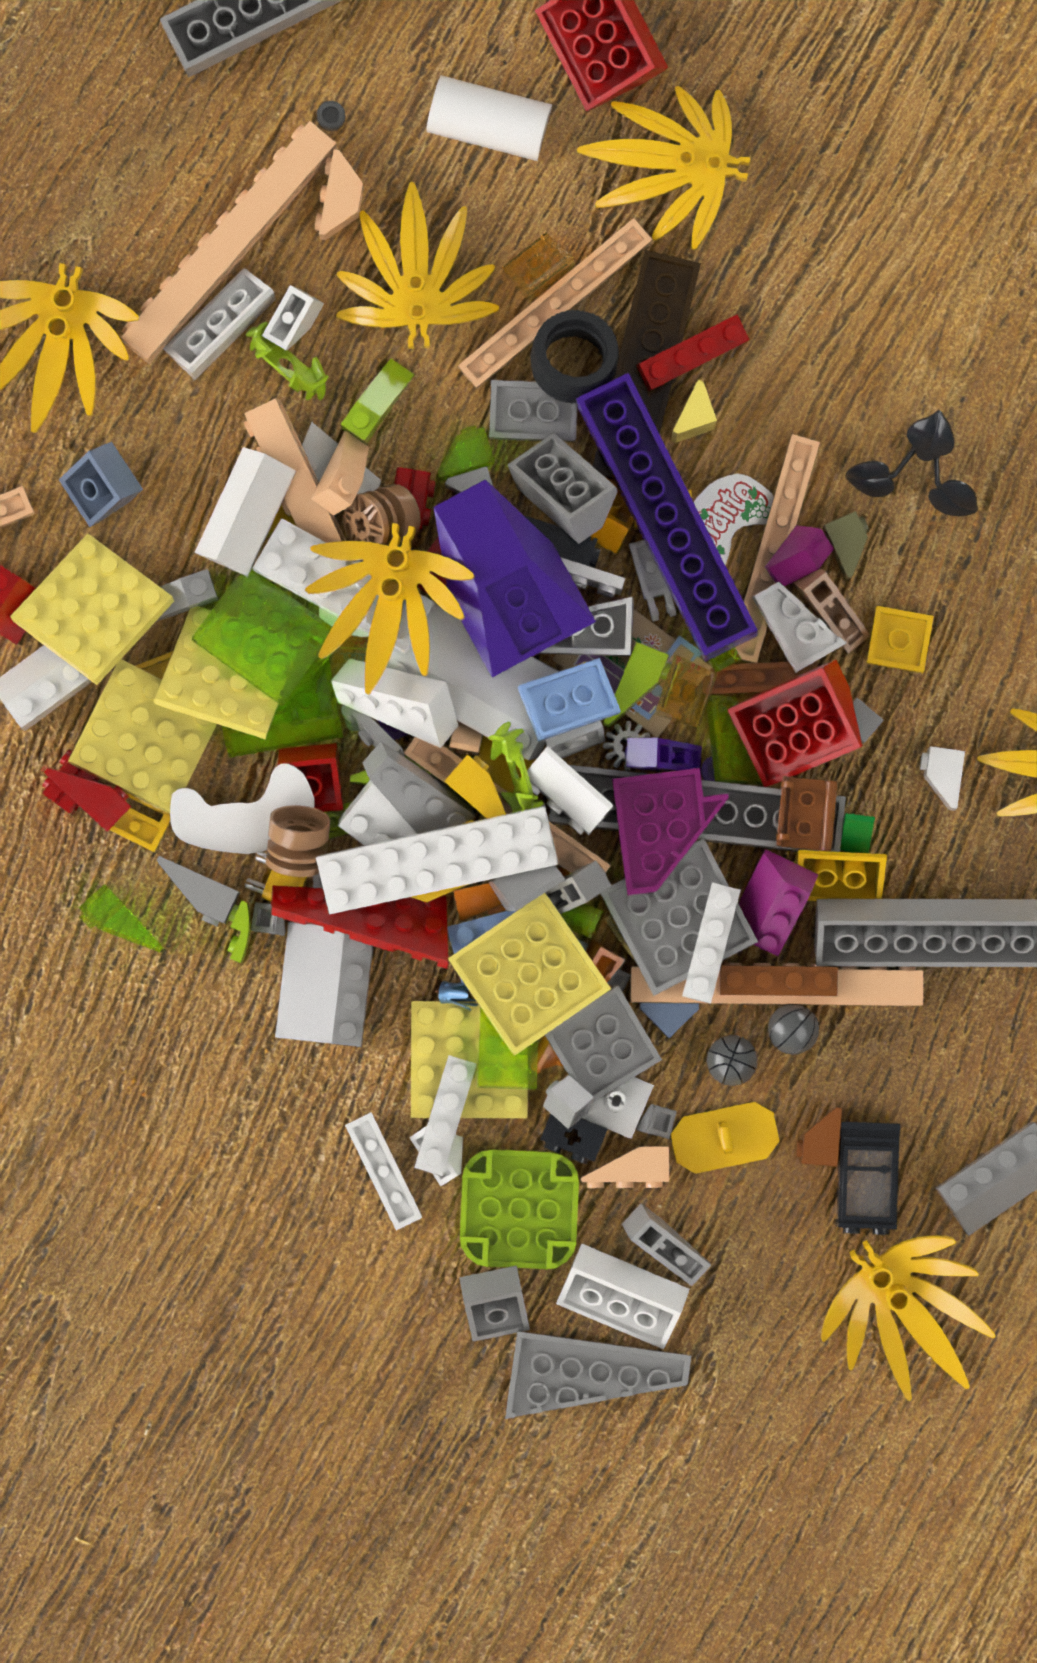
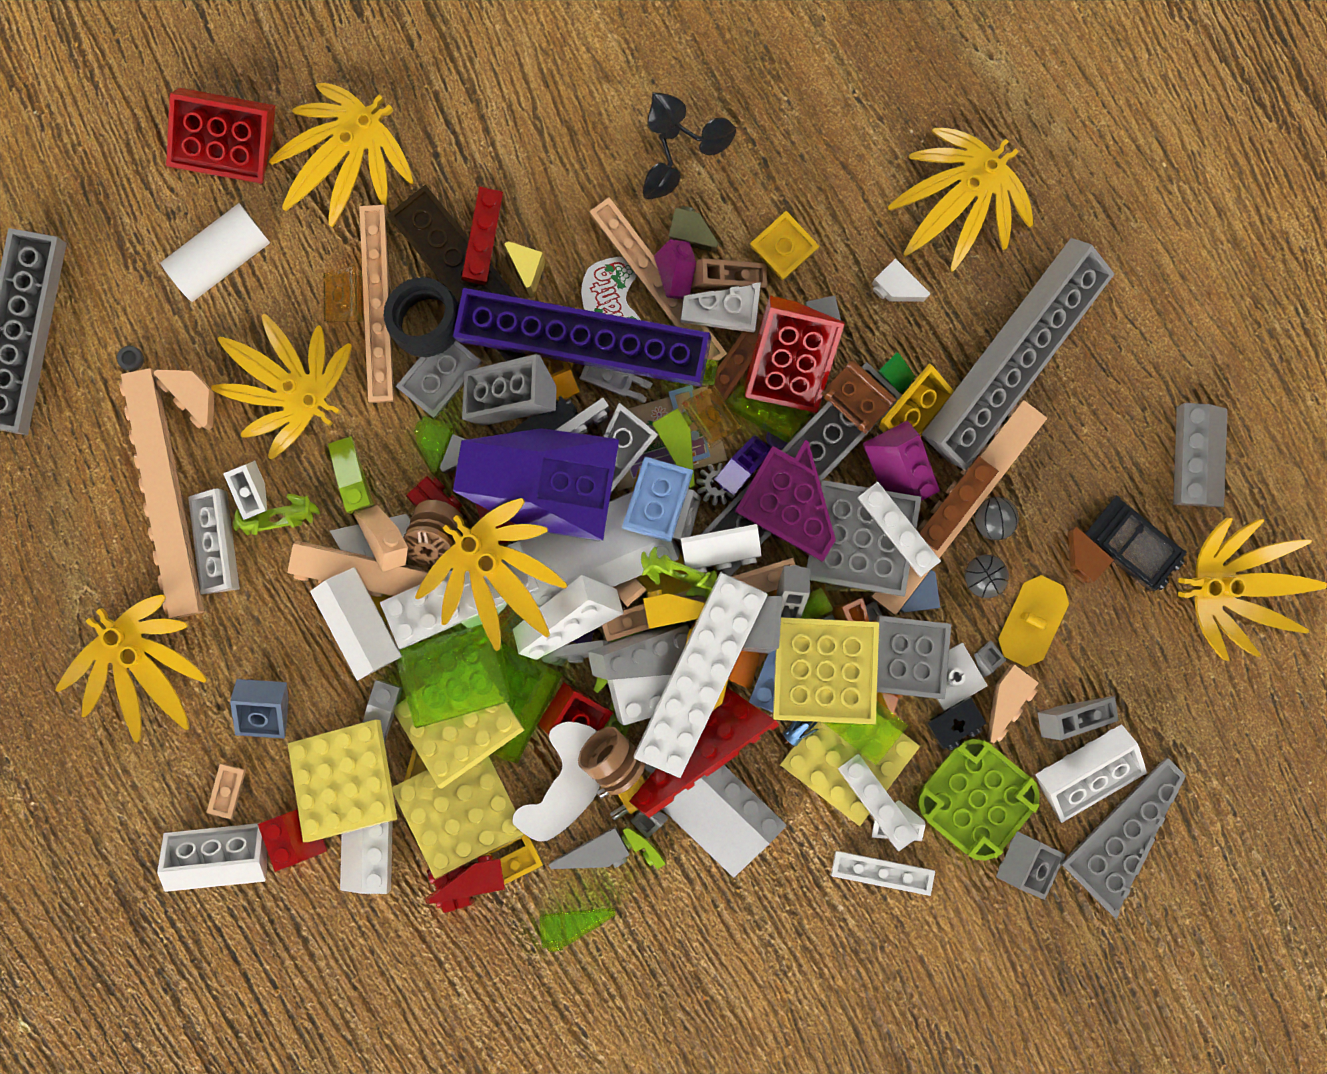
camera: 50 degrees left, 0 degrees up
(567, 1101) = (932, 710): light grey brick -> none

